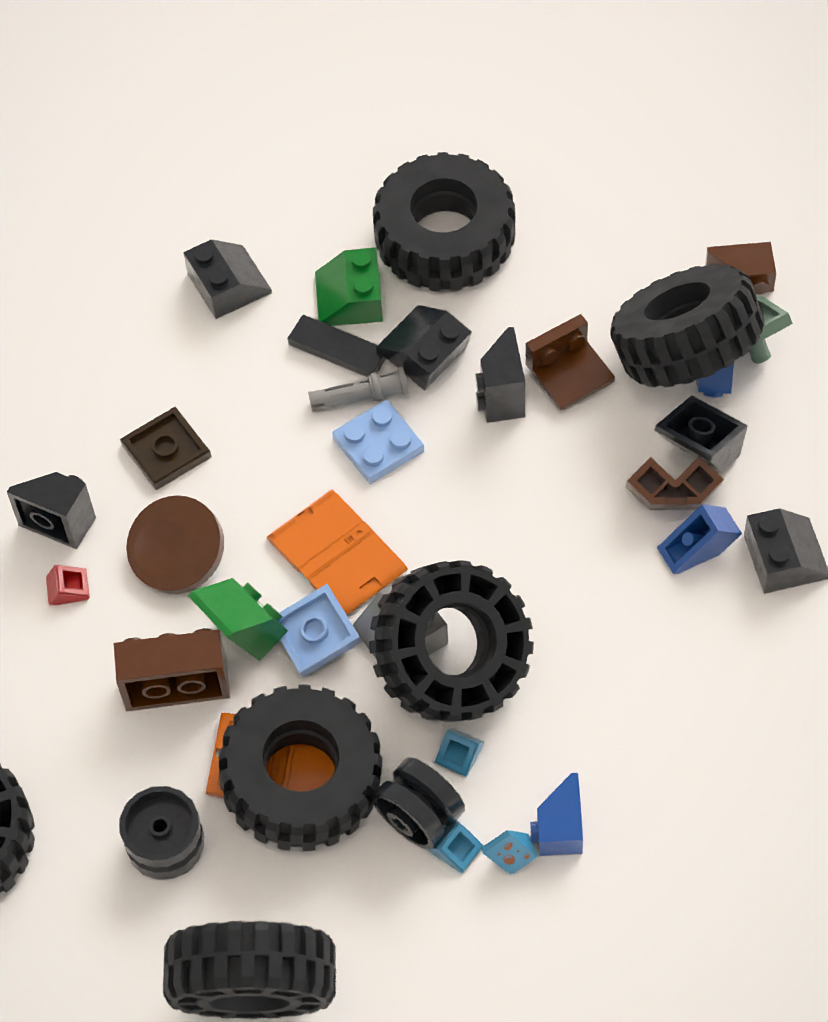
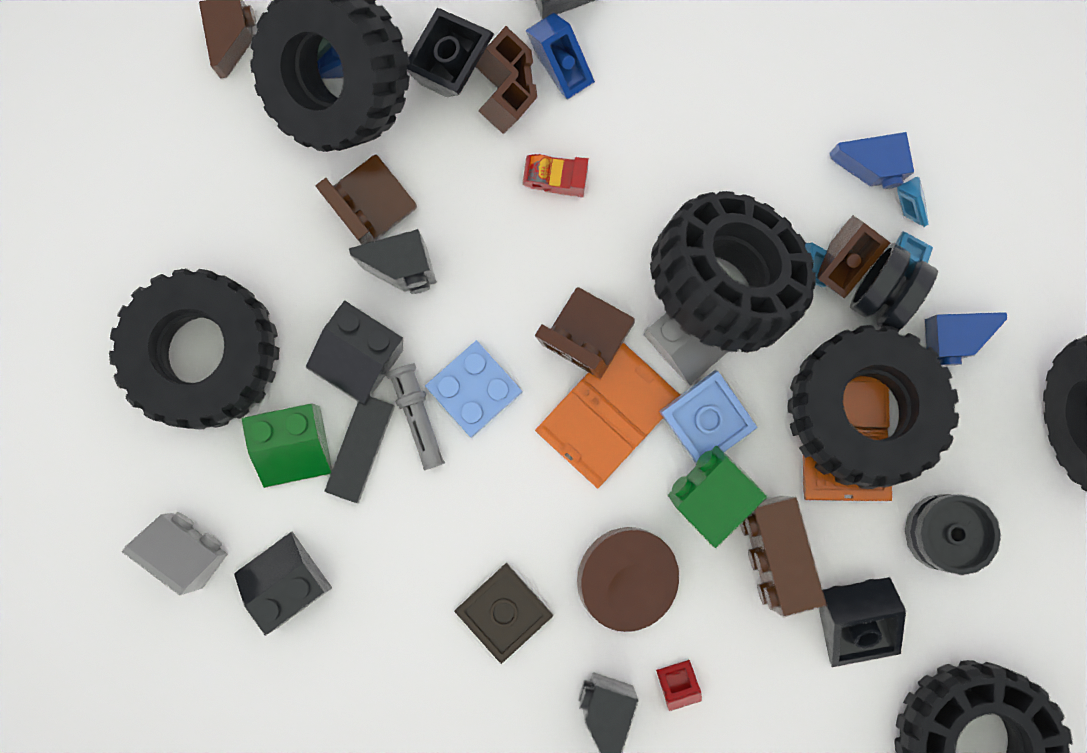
camera: 100 degrees left, 25 degrees up
(93, 744) = (862, 621): none -> black slope
(266, 197) = (176, 553): none -> light grey slope
(362, 876) = (960, 334): none -> blue slope
(411, 530) = (587, 332): none -> reddish brown bracket
(467, 777) = (851, 256): none -> reddish brown slope
(577, 527) = (556, 174): none -> red leg

